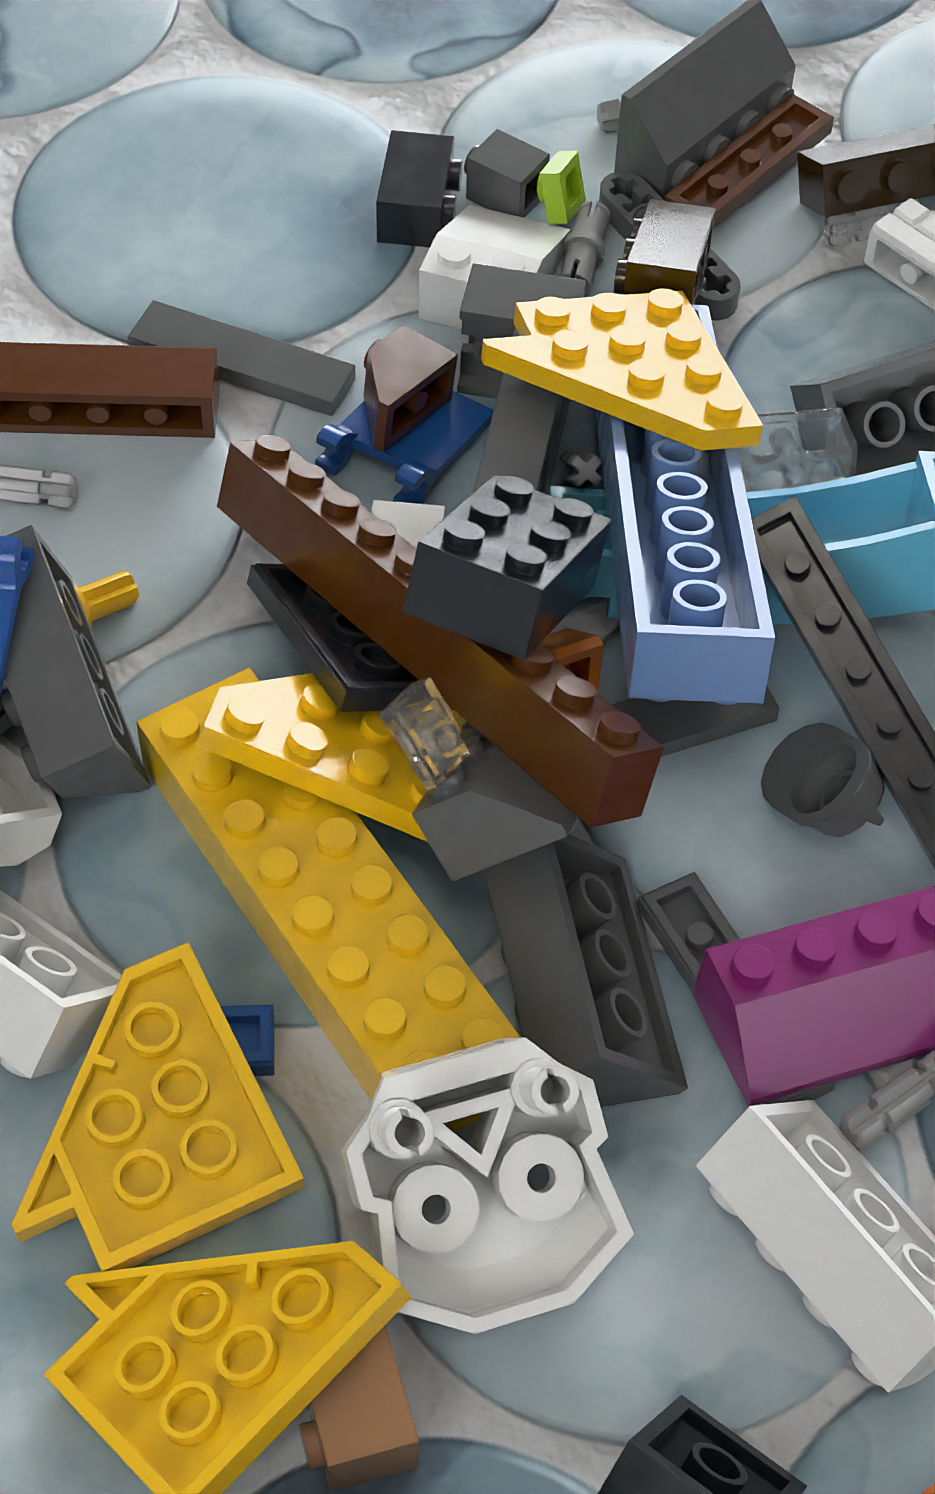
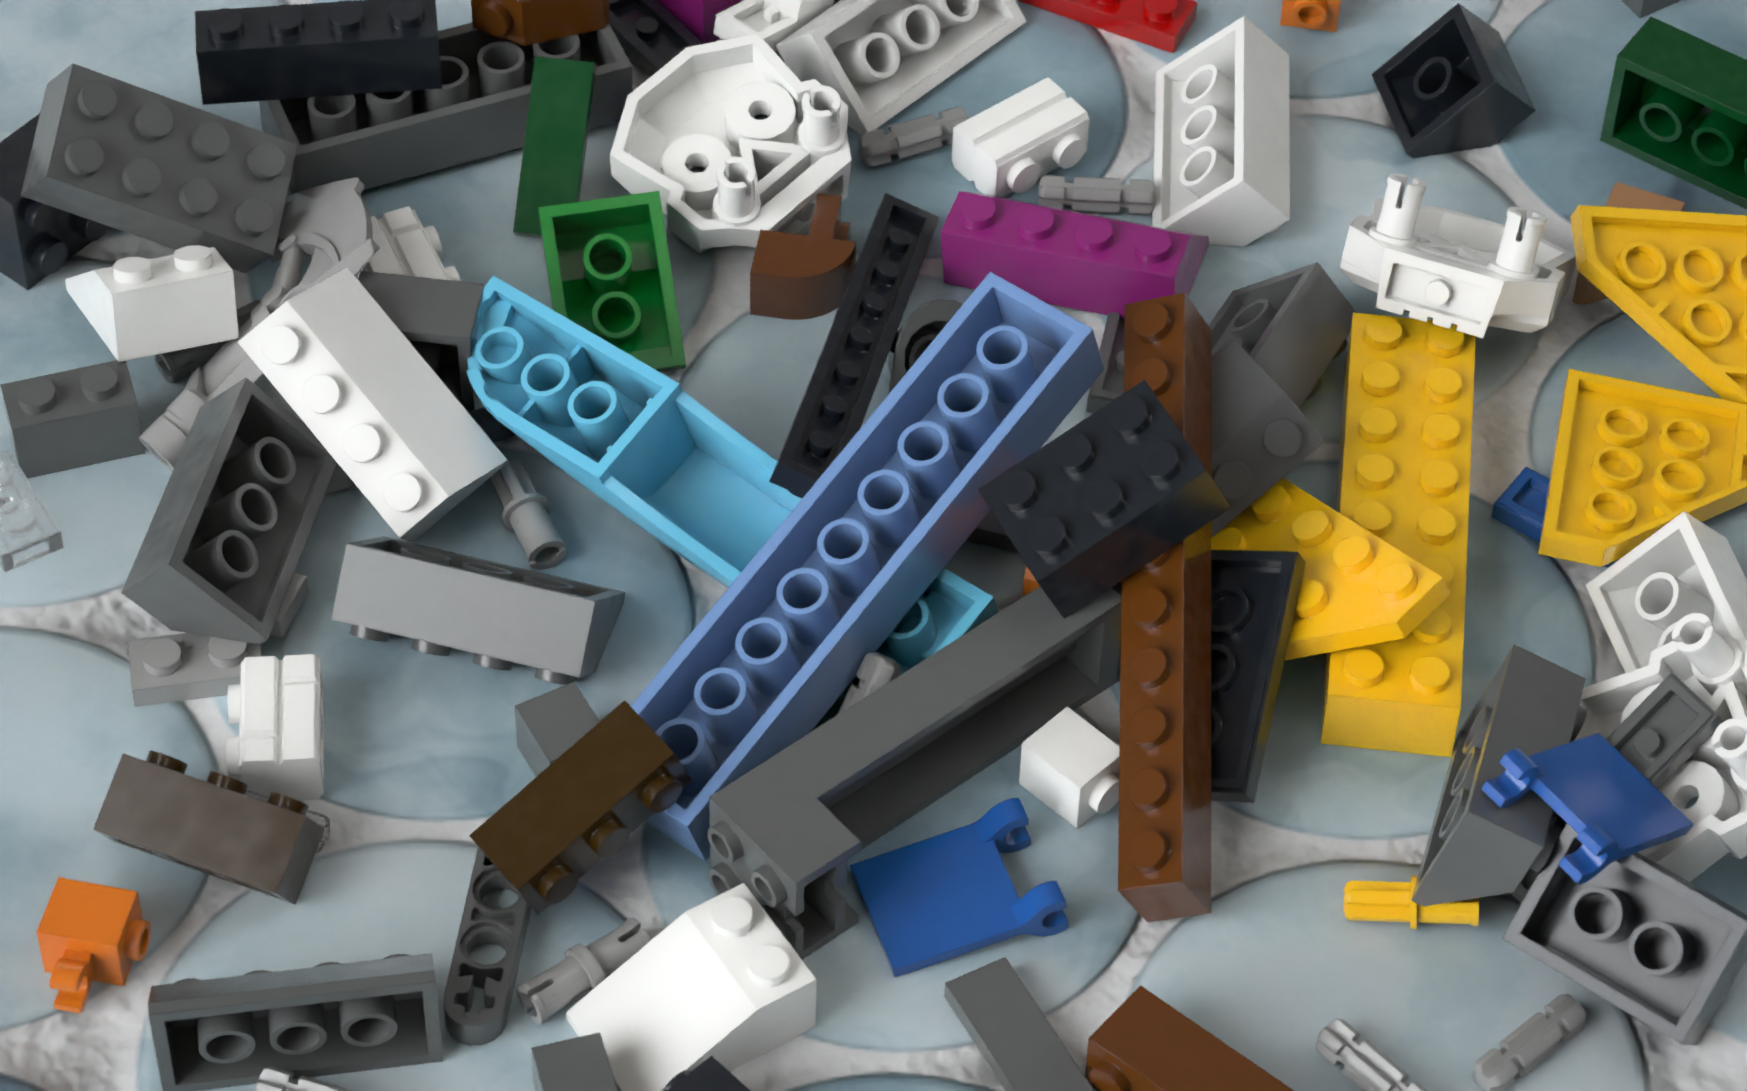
camera: 140 degrees left, 5 degrees down
(405, 383) = (943, 892): slope -> none
(425, 732) = (1280, 463): clear slope -> none
(561, 187) = (544, 1025): lime plate -> none
(634, 360) = (778, 657): wing -> none
(754, 158) = (312, 941): reddish brown plate -> none
(757, 351) = (552, 725): none -> dark grey brick
(799, 450) = (663, 584): clear brick -> none
(874, 95) = (89, 937): none -> orange brick

